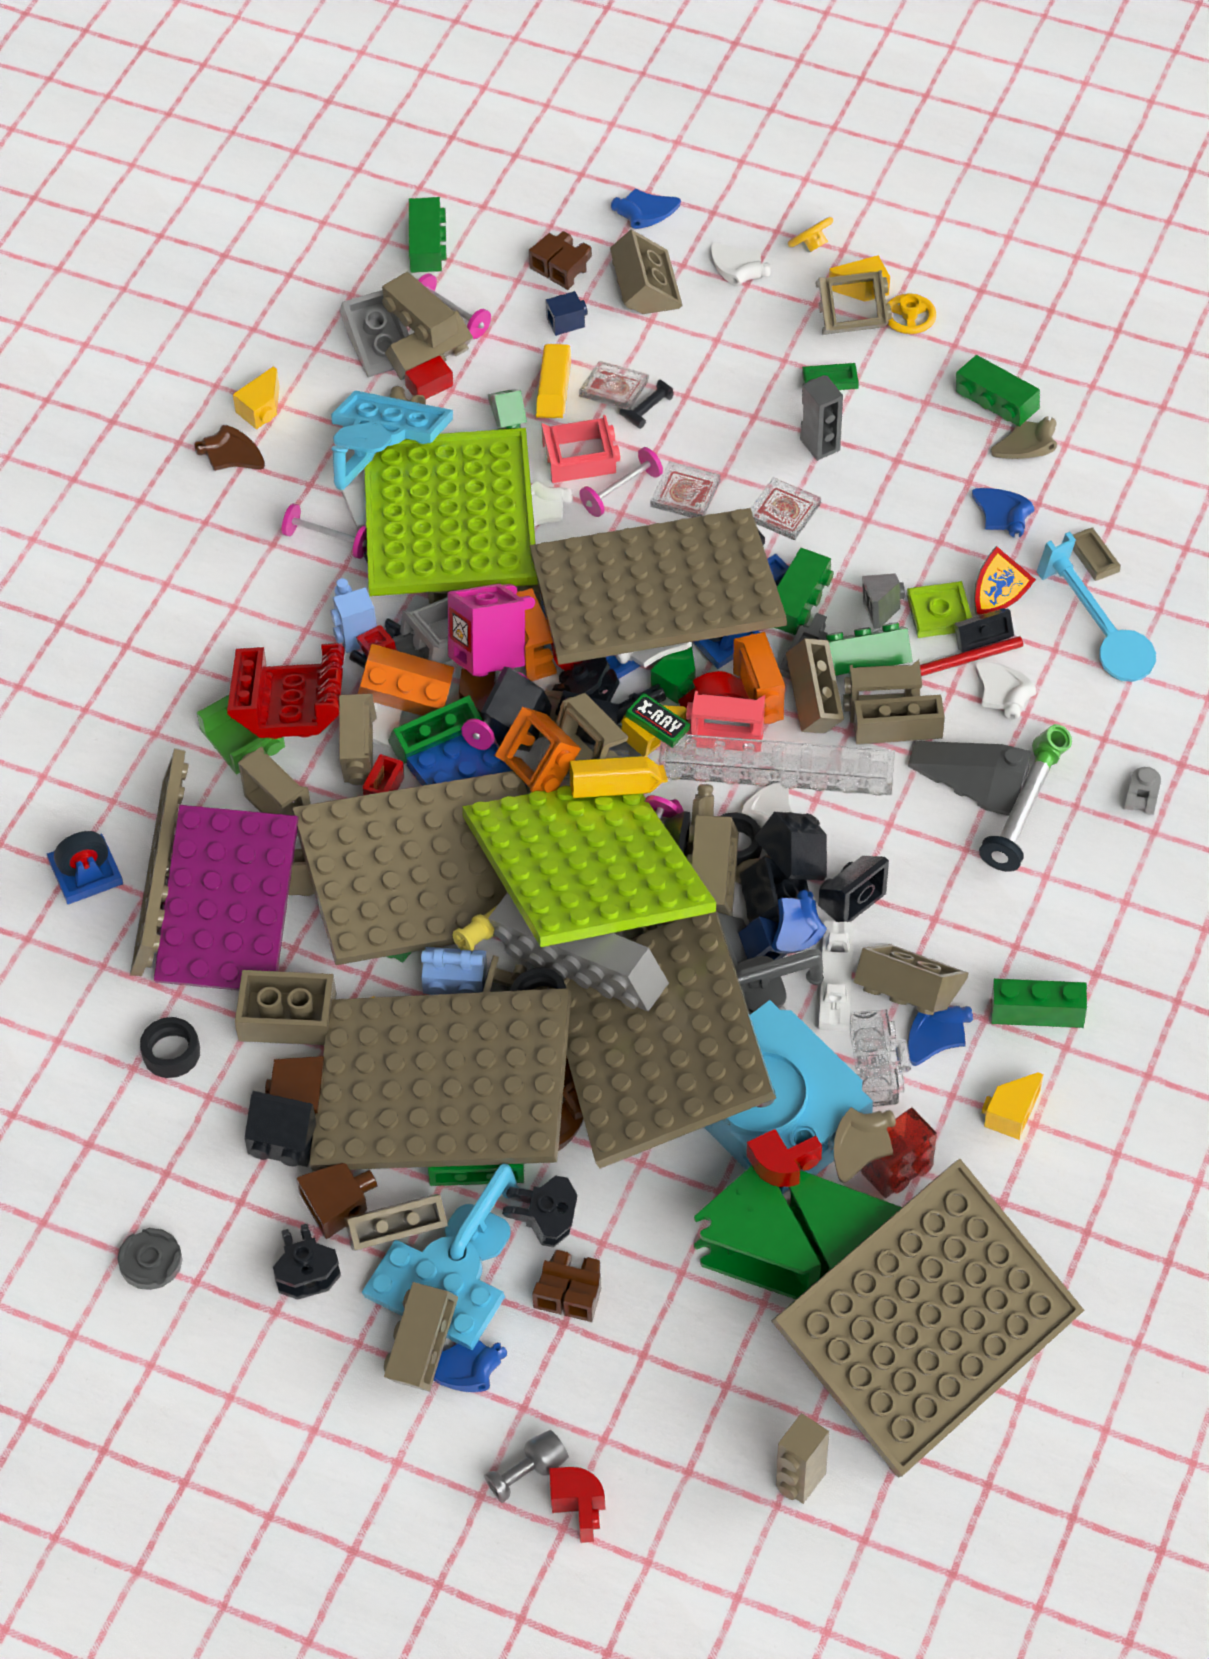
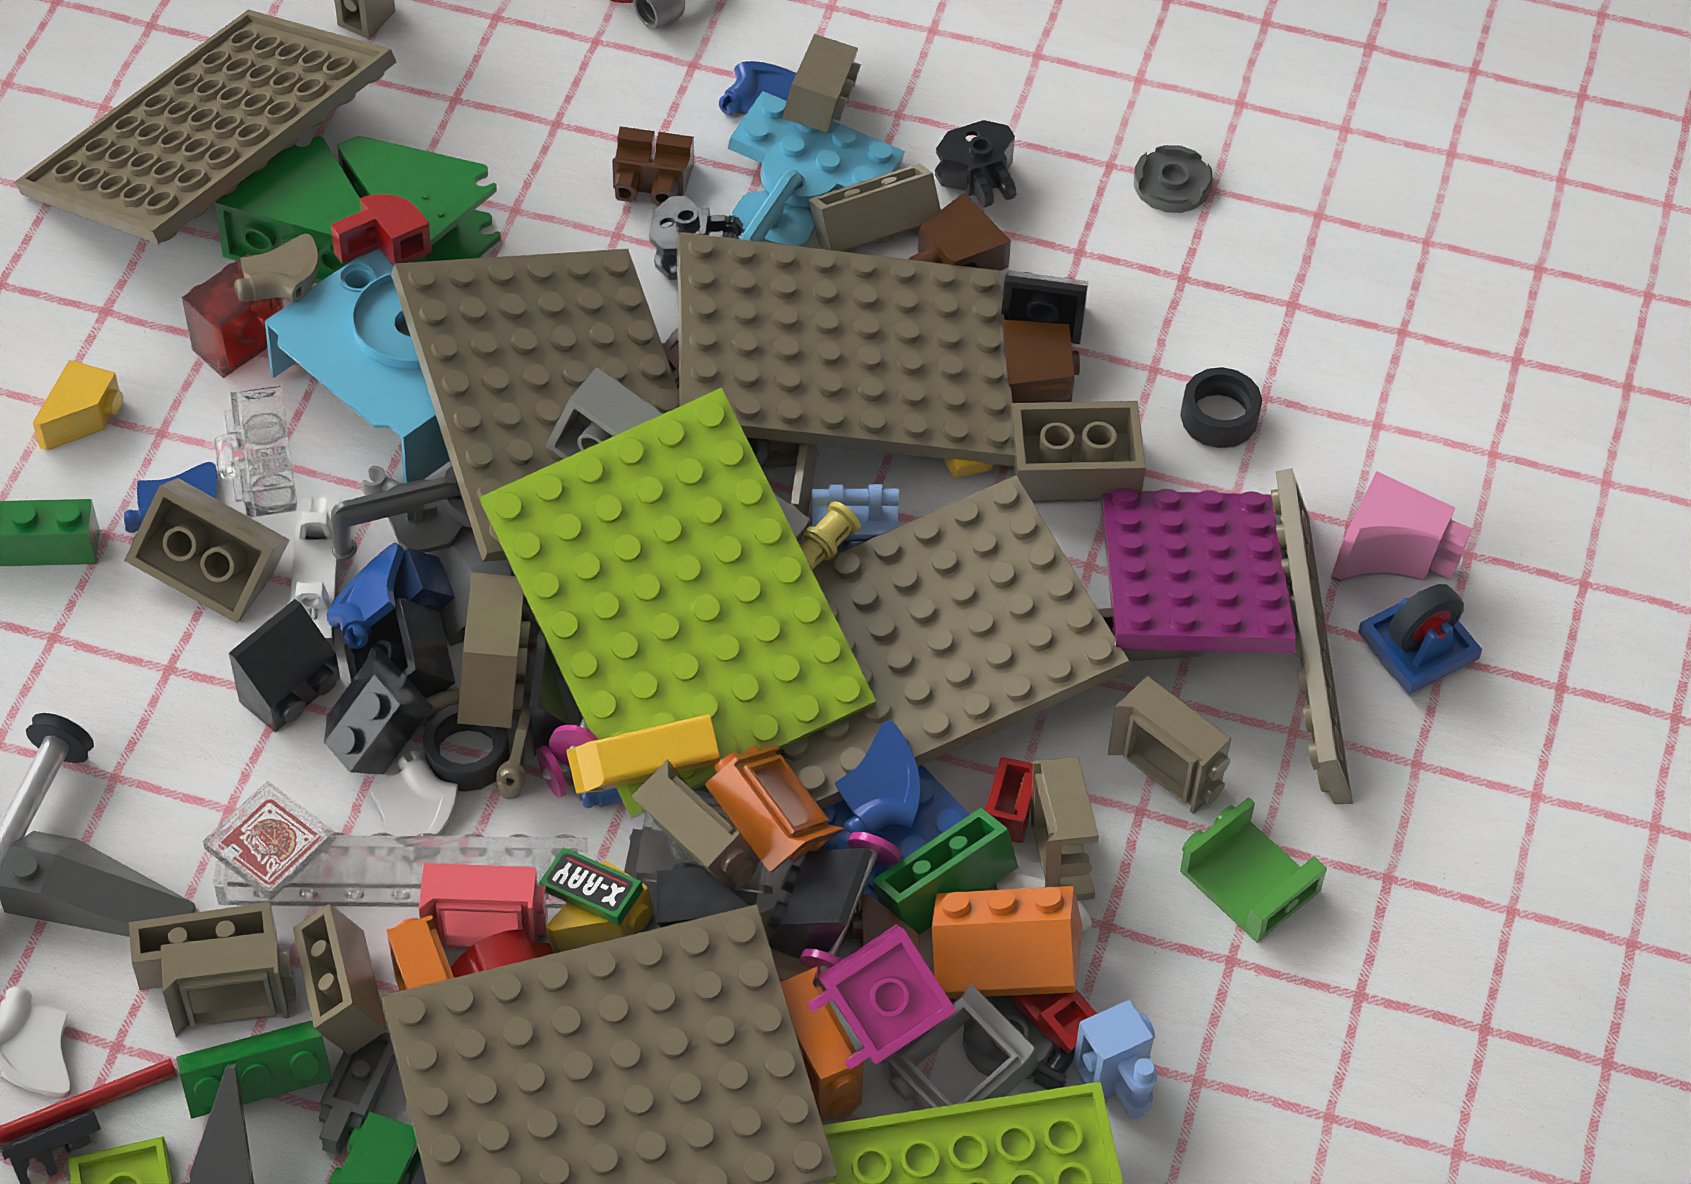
camera: 170 degrees right, 0 degrees up
(81, 926) = (1401, 534): none -> bright pink hips
(285, 698) = (1196, 896): red slope -> none
(467, 766) = (883, 785): none -> blue arm
(859, 766) = (269, 840): none -> clear tile

